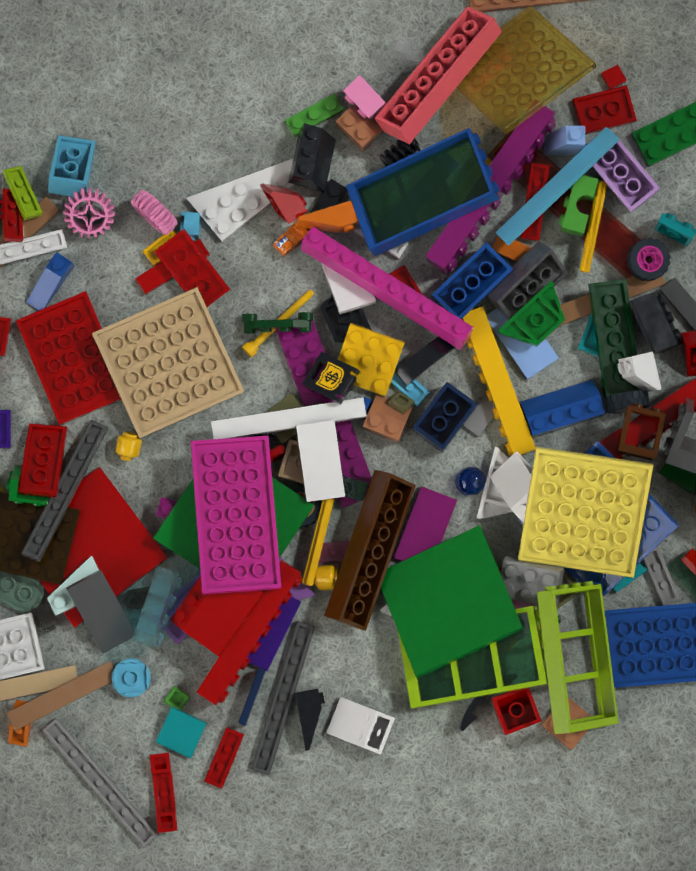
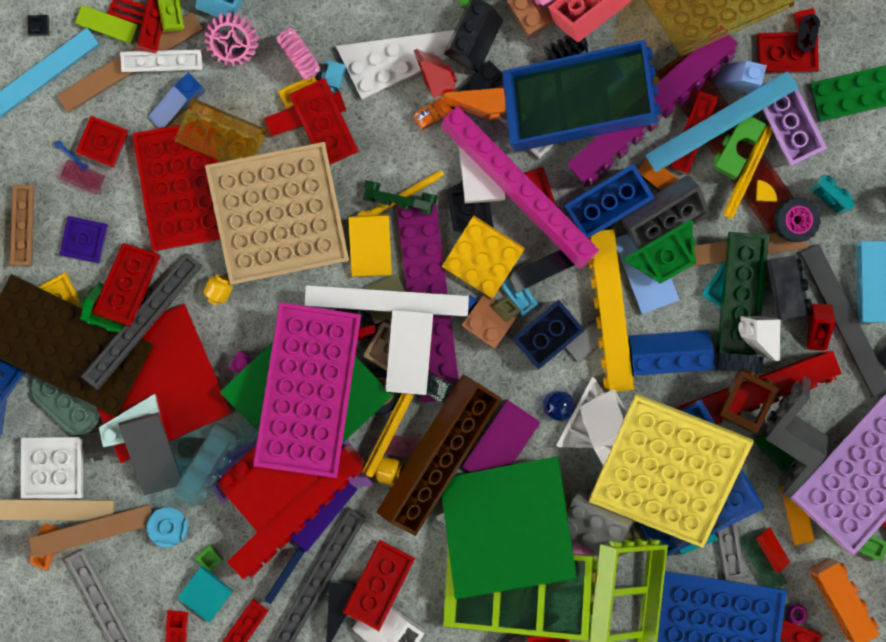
camera: 20 degrees right, 5 degrees up
(97, 301) = (219, 133): none -> clear yellow slope
(261, 373) = (370, 245): none -> yellow tile
(333, 379) = (442, 270): black container -> none
(342, 685) = (378, 585): none -> red tile
(613, 88) = (812, 34): none -> black beam
(613, 241) = (765, 192): none -> yellow tile

